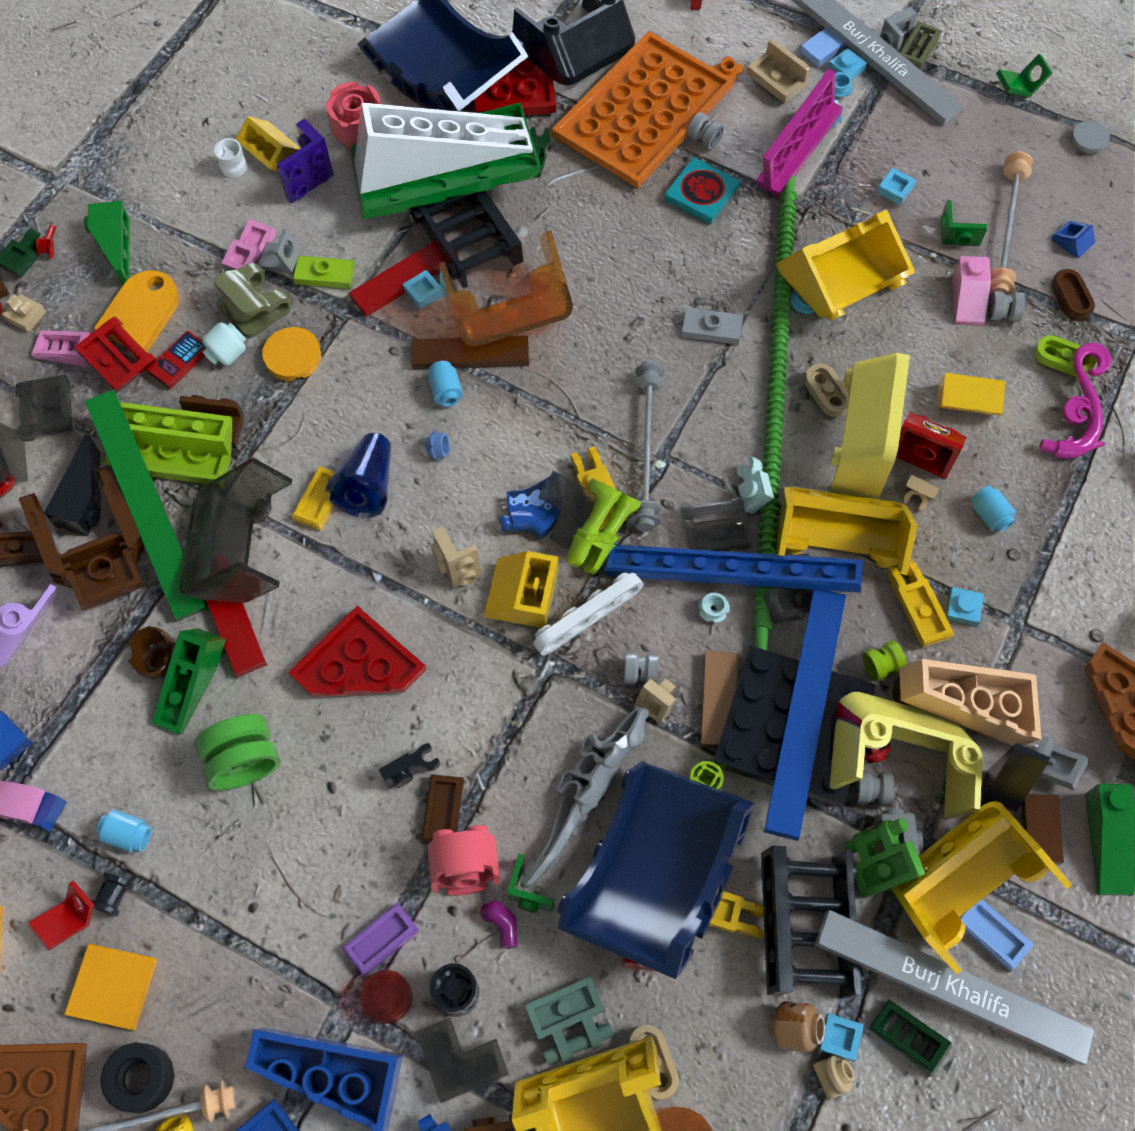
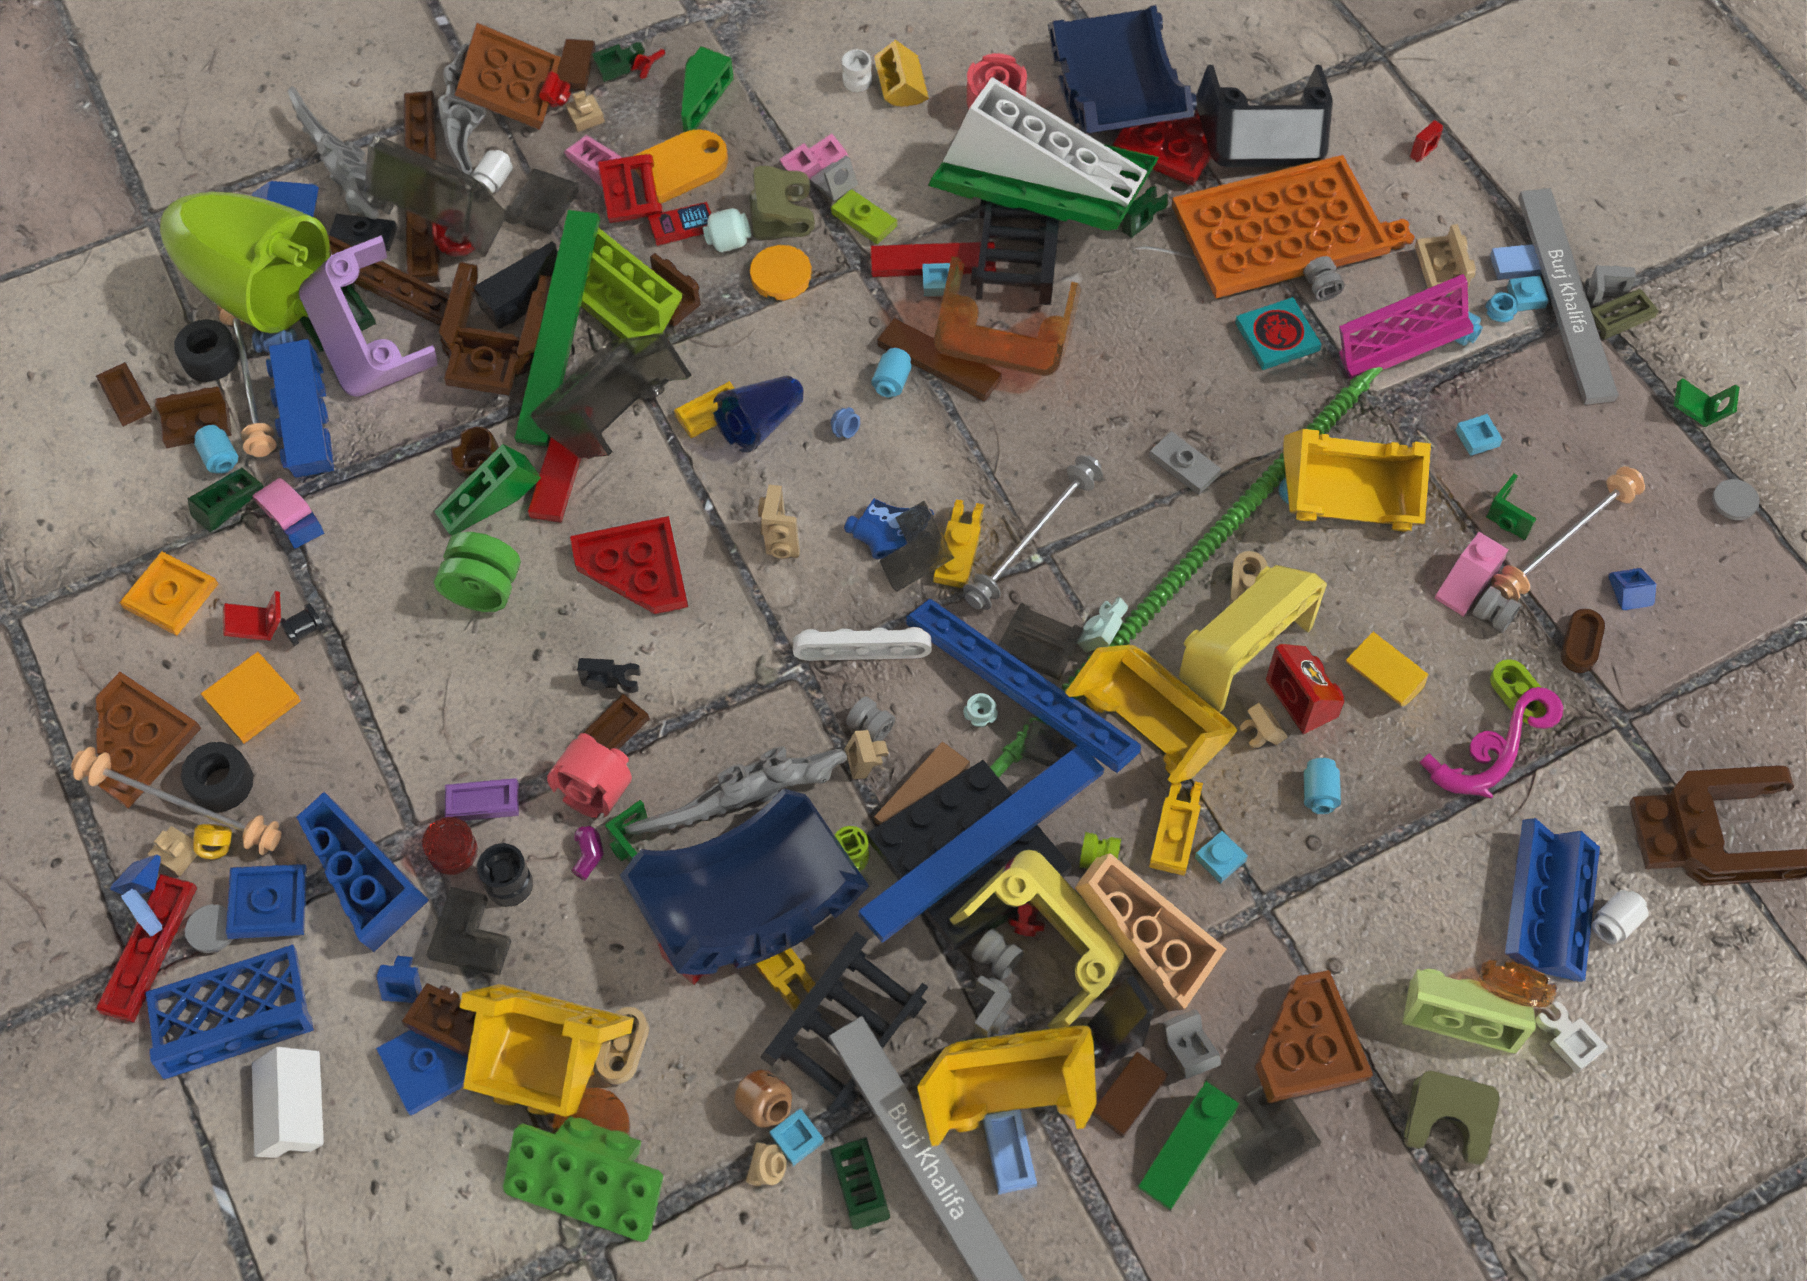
camera: 35 degrees right, 5 degrees down
(124, 831) = (348, 582): medium azure brick -> none
(307, 166) = (913, 112): dark purple bracket -> none
(523, 588) = (822, 589): yellow slope -> none
(563, 1010) = (581, 953): sand green plate -> none
(593, 545) = (923, 588): lime piece -> none
(888, 868) = (949, 1022): bright green plate -> none

